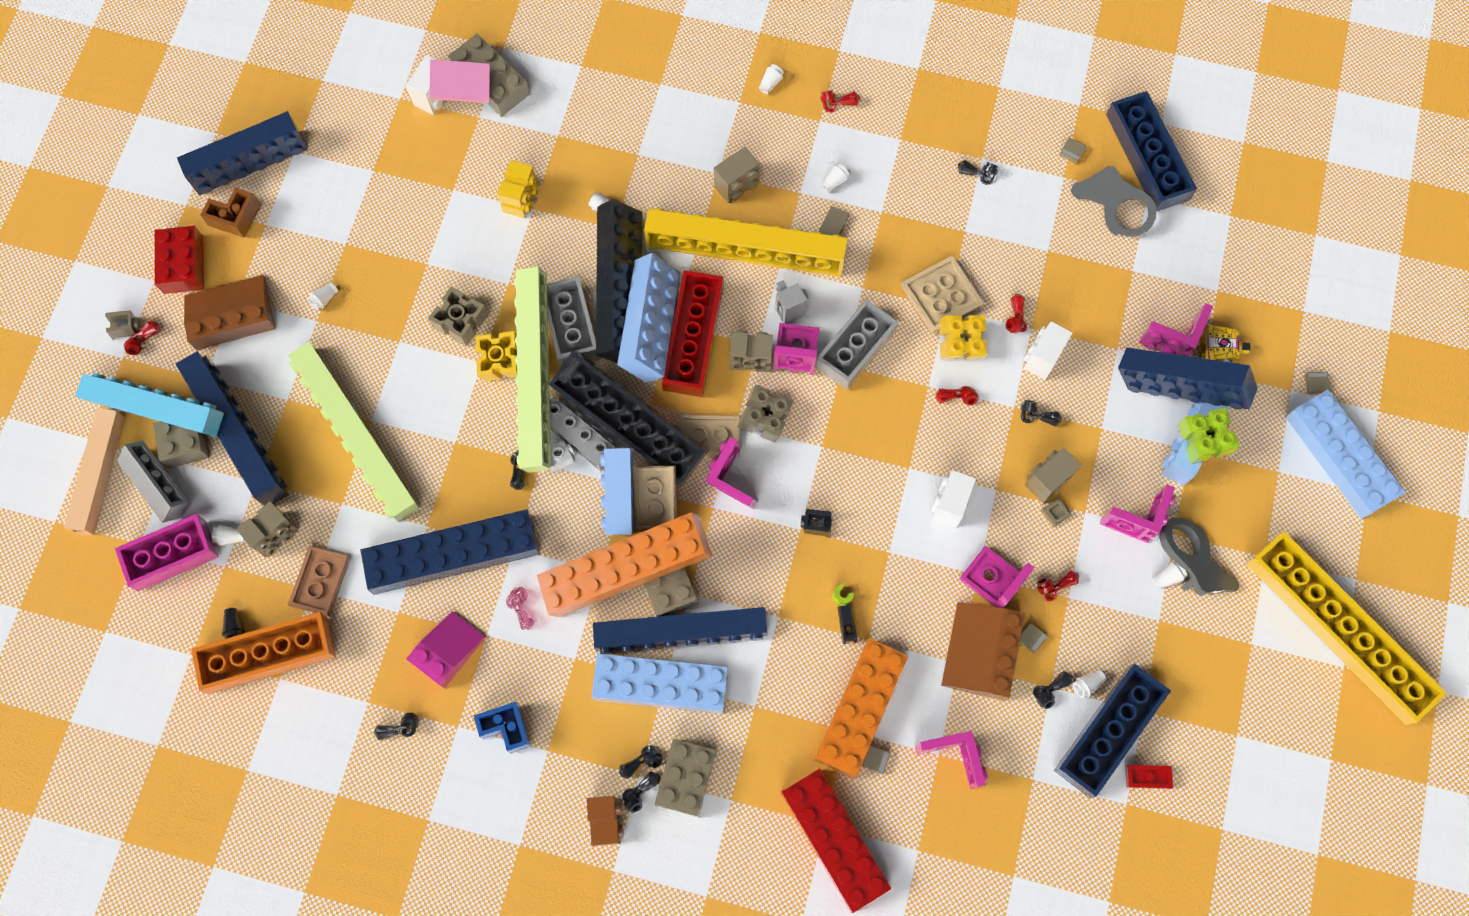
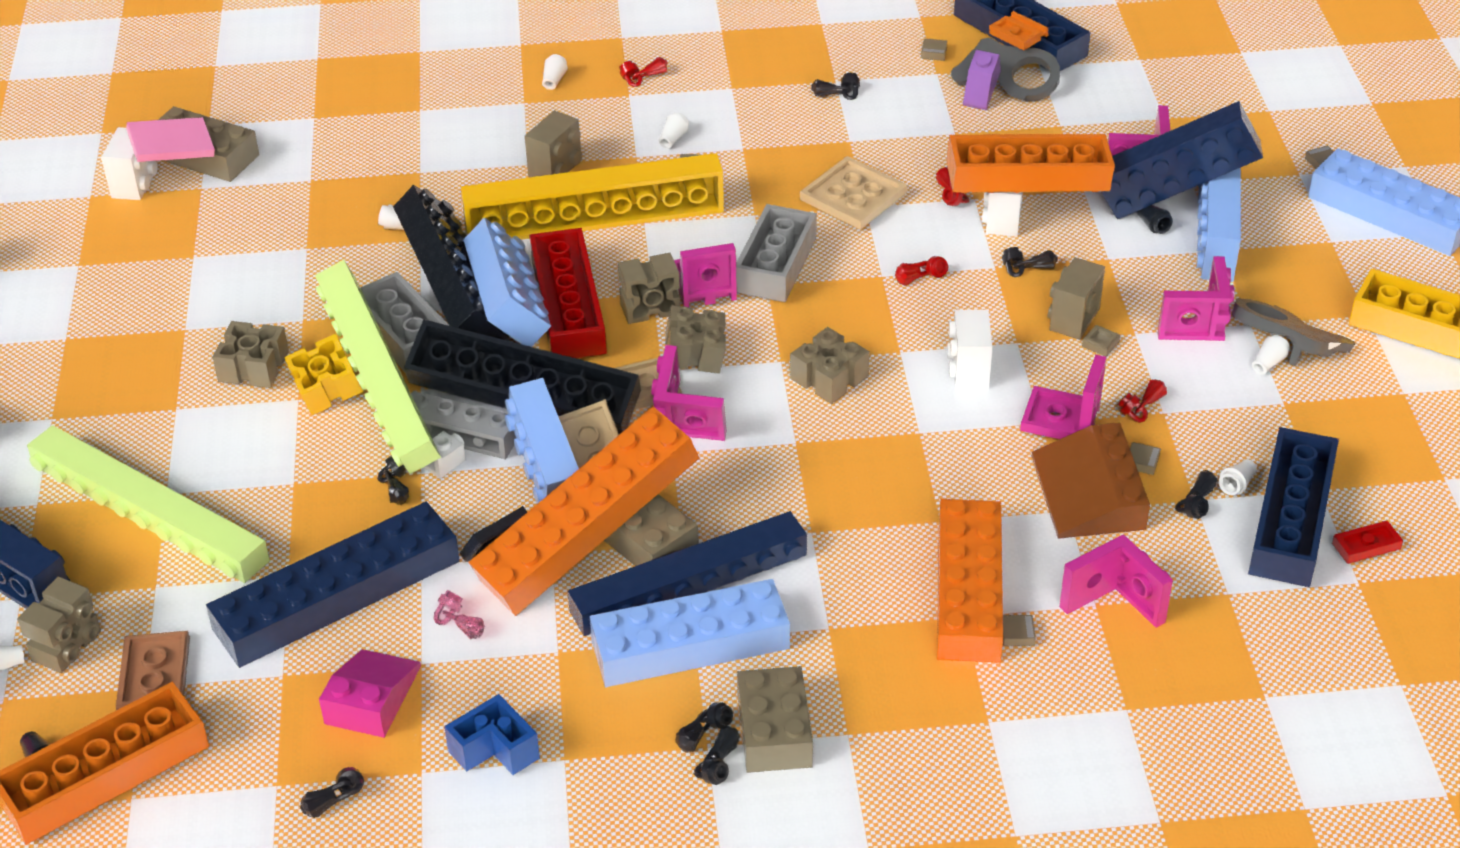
camera: 20 degrees left, 30 degrees down
(321, 296) = (50, 389): white cone -> none
(518, 189) = (283, 223): yellow brick -> none
(562, 552) = (487, 535): none -> black tile
(604, 820) = (681, 791): dark orange brick -> none
(790, 302) = (675, 230): light grey brick -> none
(817, 522) = (814, 421): black window -> none
(835, 841) = (1013, 722): red brick -> none
(845, 482) = (829, 365): none -> dark tan brick
(845, 614) = (897, 498): black piece -> none
(954, 345) = (899, 213): yellow brick -> none
(1071, 345) = (1029, 163): none -> orange brick
(1089, 209) = (981, 79): none -> medium lavender slope
(1139, 171) = (1018, 30): none -> orange plate
(1154, 406) = (1156, 219): none -> black cone
(1218, 443) = (1232, 197): lime brick -> none

